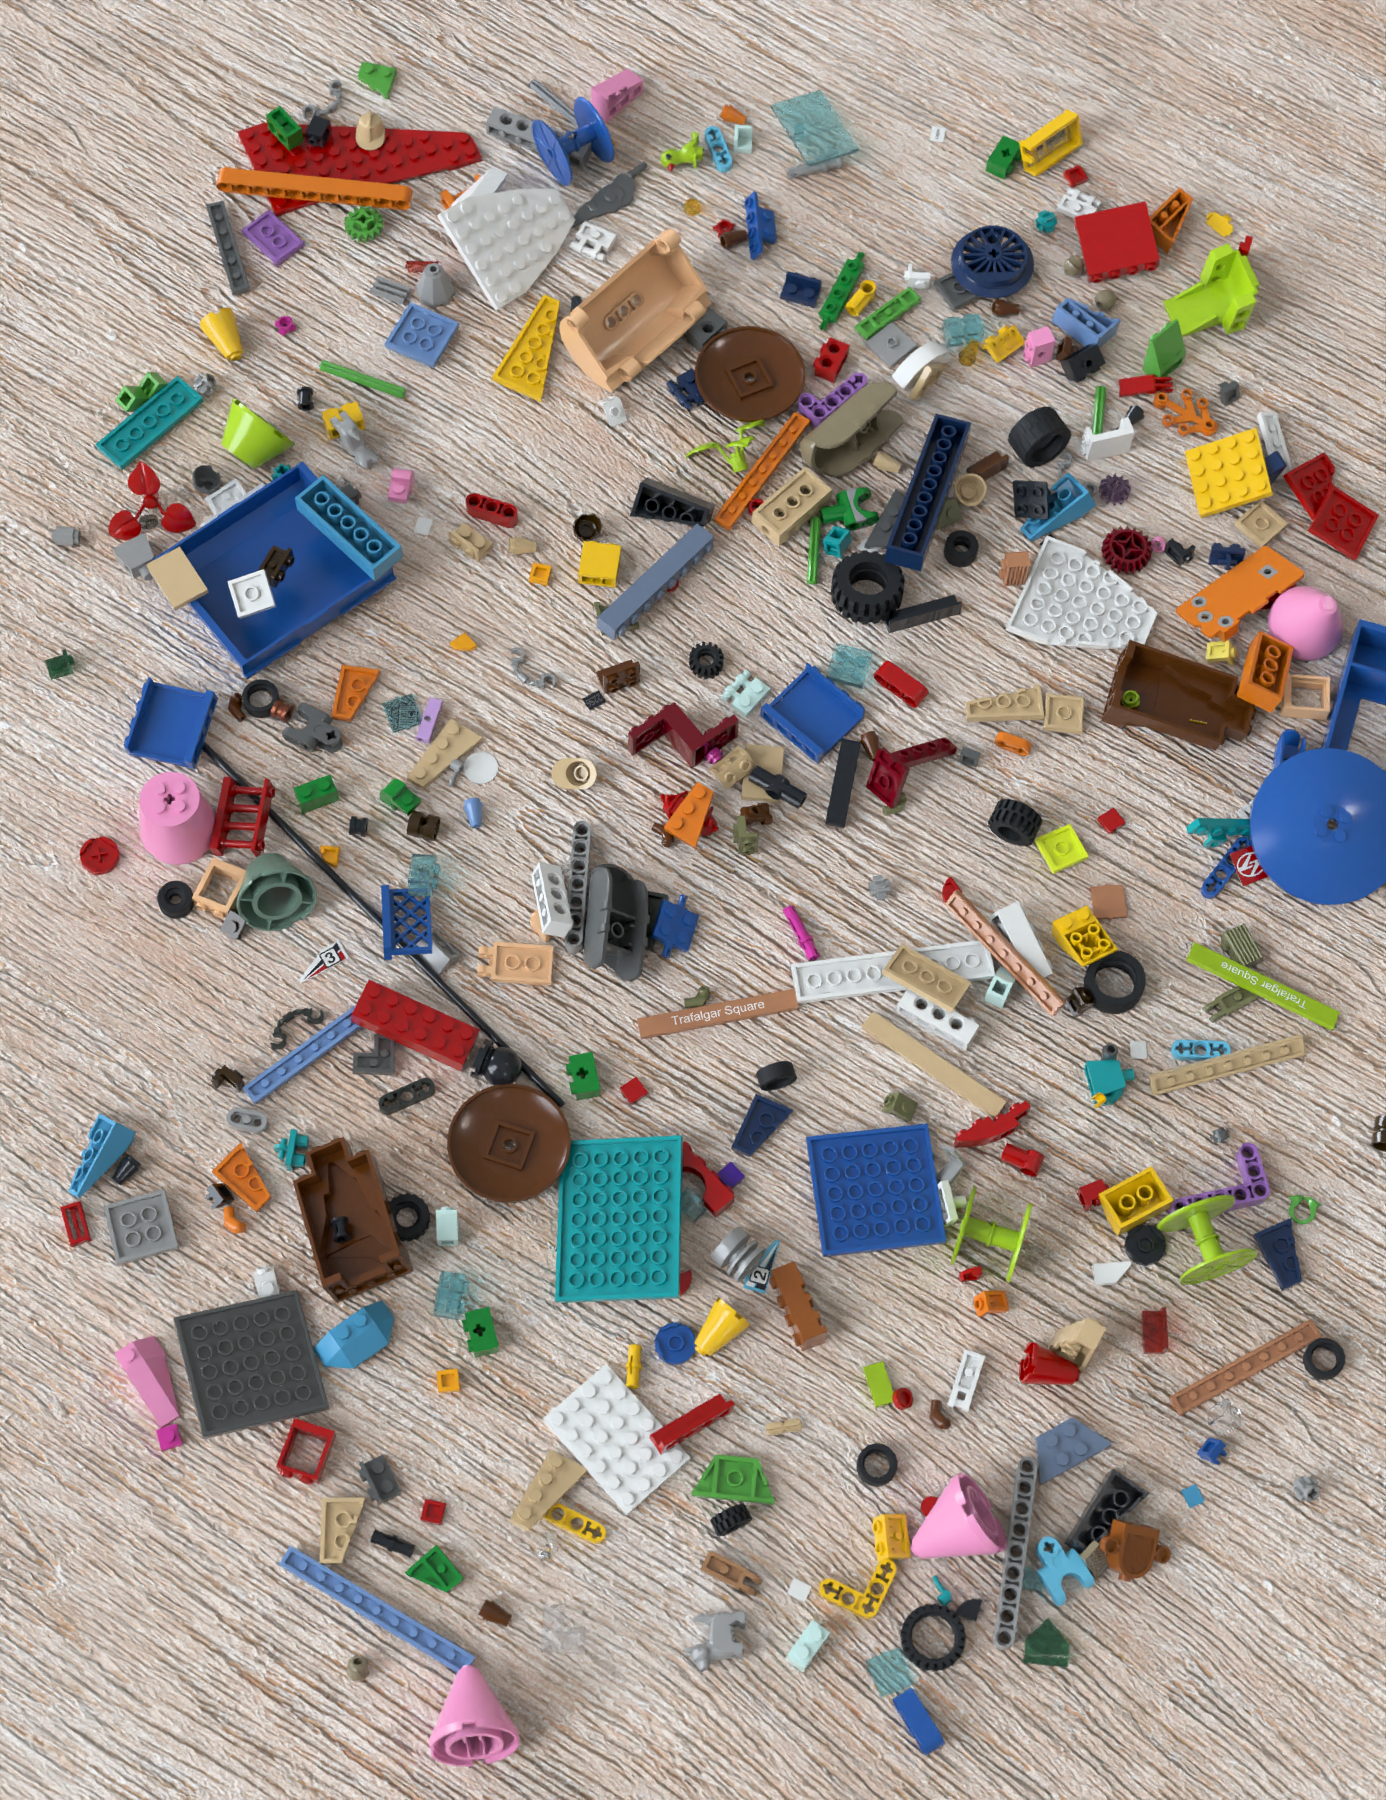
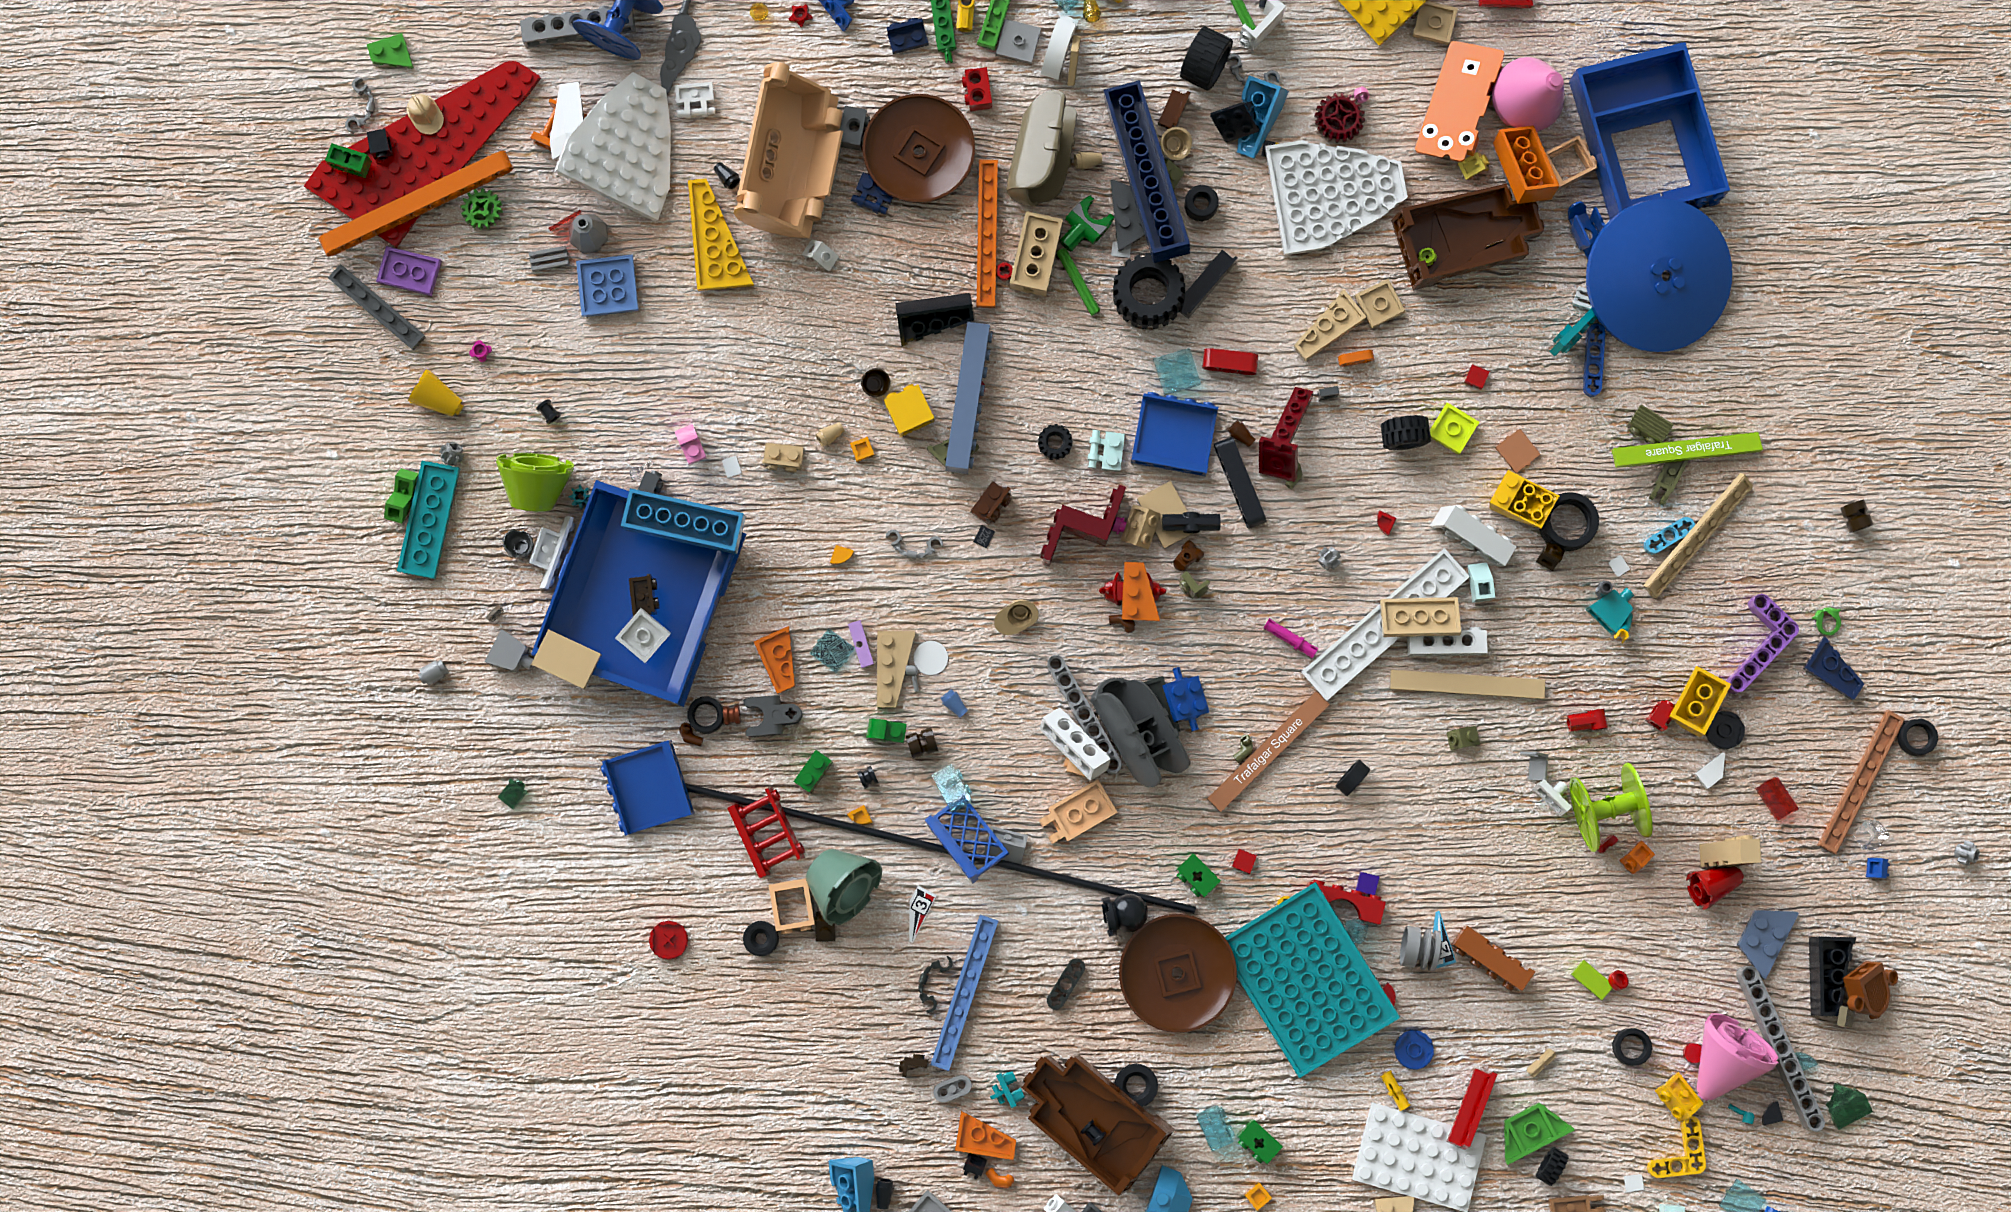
camera: 30 degrees left, 15 degrees up
(145, 481) = (480, 590): red plant -> none
(175, 819) = (732, 877): bright pink cone -> none
(351, 409) = (602, 404): yellow piece -> none
(353, 441) = (622, 429): light grey animal -> none
(362, 379) = (584, 360): bright green axle -> none
(376, 1063) = (1025, 967): dark grey plate -> none
(415, 1025) = (1035, 923): red brick -> none
(447, 1227) = (1176, 1074): light aqua slope -> none
(496, 517) = (792, 419): red beam -> none
(719, 1328) = (1443, 1017): yellow cone -> none
(732, 238) = (815, 21): reddish brown cone -> none
(737, 458) = (958, 235): lime plant -> none
(759, 1124) = (1362, 825): dark blue wing -> none
(836, 398) = (1005, 125): medium lavender beam -> none
(837, 541) = (1090, 266): teal brick -> none
(875, 1190) = (1489, 821): blue plate -> none
(937, 1417) = (1652, 977): reddish brown arm -> none
(945, 1614) = (1783, 1154): black tyre -> none
(966, 1379) = (1657, 933): white plate -> none
(986, 1131) = (1545, 715): red slope -> none
(1005, 953) = (1468, 554): nougat tile -> none
(1014, 568) = (1260, 195): nougat brick -> none
(1058, 1565) = (1819, 1037): medium azure piece -> none
(1114, 489) = (1293, 72): clear purple gear -> none
(1178, 553) = (1382, 93): black bracket -> none
(1192, 1496) = (1882, 912): dark azure sticker -> none
(1198, 1217) = (1797, 717): lime piece -> none
(1220, 1134) = (1728, 600): dark grey plate -> none
(1226, 555) = (1425, 72): dark blue hips -> none
(1247, 866) = (1610, 349): red sticker -> none

